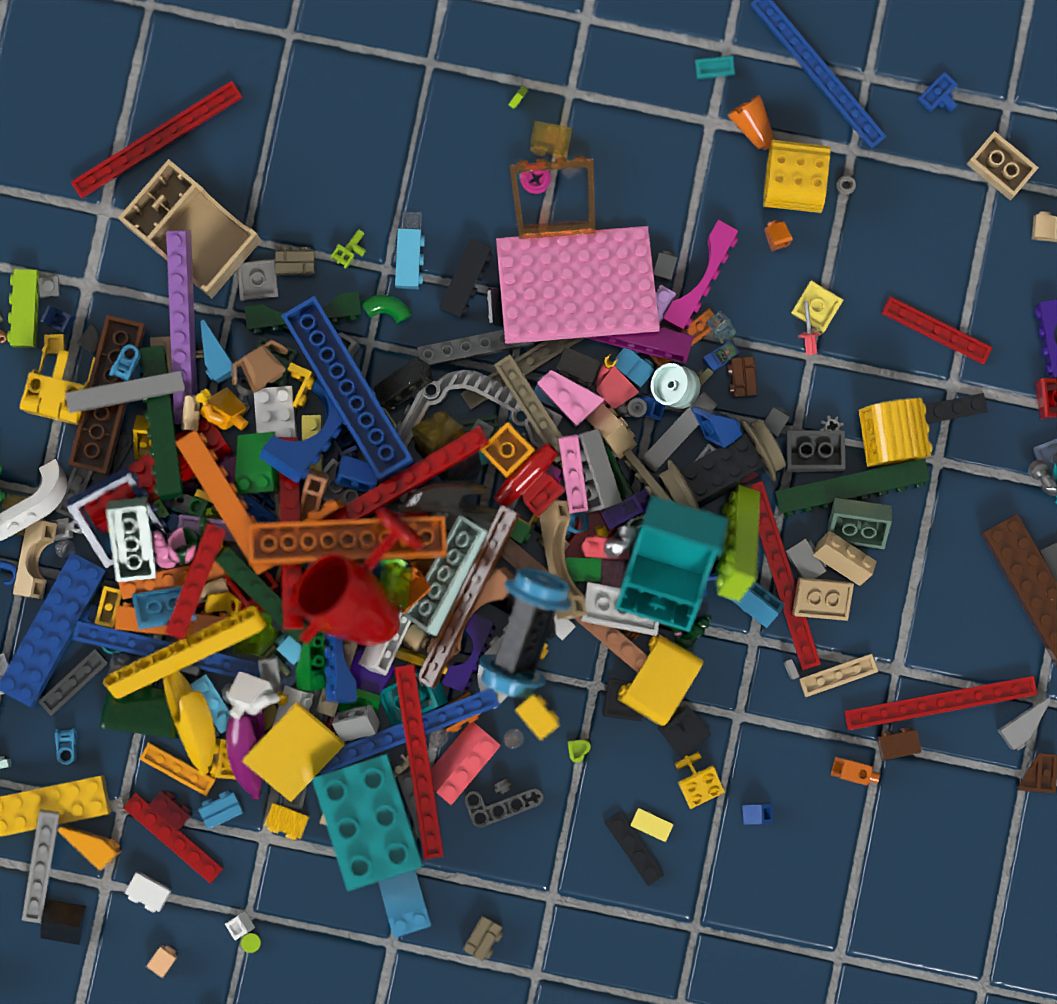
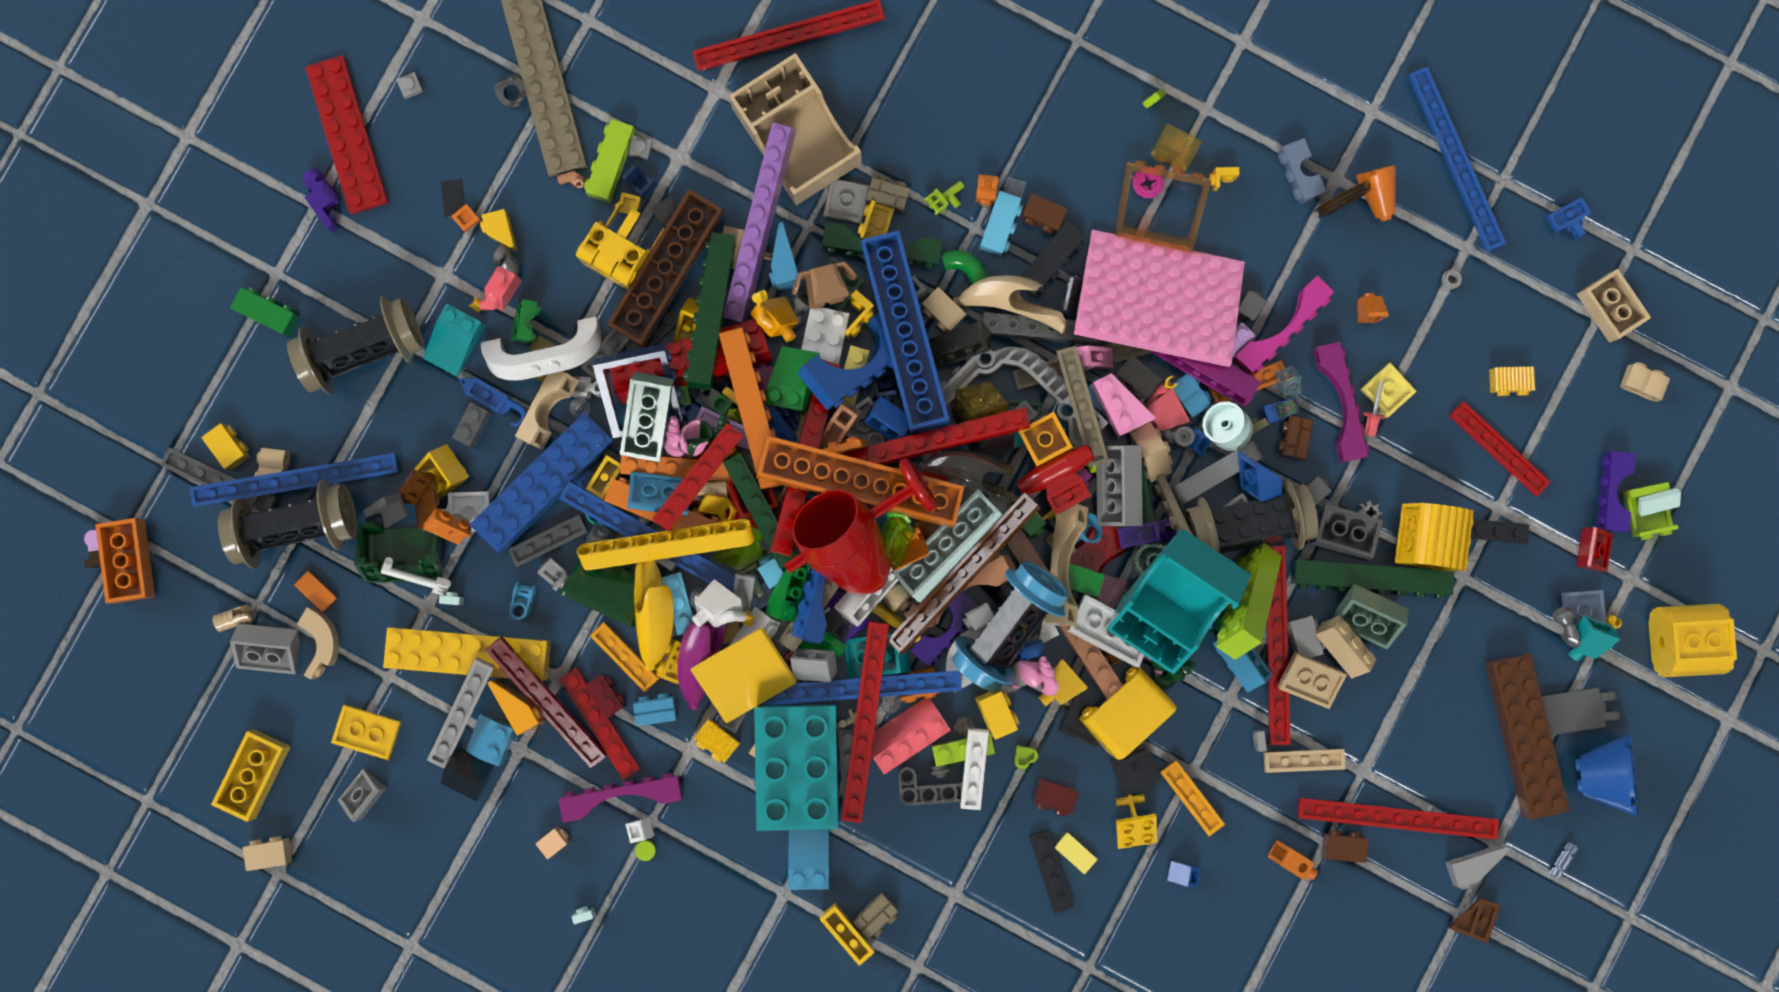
camera: 15 degrees right, 0 degrees up
(76, 883) = (491, 740): none -> dark azure slope
(88, 711) = (553, 573): none -> light grey bracket
(117, 832) = (545, 701): none -> dark red plate
(124, 392) = (683, 269): light grey tile -> none
(125, 364) = (692, 242): dark azure piece -> none
(148, 892) = (559, 770): white brick -> none
(191, 413) = (742, 310): tan hinge -> none
(249, 882) = (662, 790): none -> magenta arch
(292, 291) = (877, 220): none -> yellow bracket
(365, 679) = (836, 624): none -> clear smoke brick
(378, 356) = (943, 311): none -> tan brick
(386, 230) = (986, 190): none -> orange brick
(431, 324) = (1004, 293): none -> tan piece
(446, 238) = (1043, 214): none -> reddish brown brick
(461, 962) = (847, 934): none -> yellow brick
(494, 633) = (978, 617): none -> light grey brick
(518, 760) = (955, 751): none -> lime brick
(533, 358) = (1095, 357): none -> bright pink slope
(533, 774) = (974, 769): none -> white tile
(553, 648) = (1031, 650): none -> blue brick
(559, 671) = (1033, 674): none -> bright pink hair
(573, 473) = (1103, 482): bright pink tile -> none
(592, 672) = (1069, 684): none -> yellow torso
(603, 547) = (1118, 567): torso -> none
(606, 149) = (1226, 174): none -> yellow bracket
(617, 778) = (1055, 796): none -> clear red brick
(684, 139) = (1305, 187): none -> sand blue arch
(714, 67) = (1355, 126): teal tile -> none
(720, 142) = (1343, 199): none -> dark brown wedge
(744, 741) = (1192, 798): none -> light orange plate
(755, 297) = (1331, 363): none -> magenta arch
(796, 176) = (1409, 255): yellow piece -> none
(929, 263) = (1512, 379): none -> yellow brick

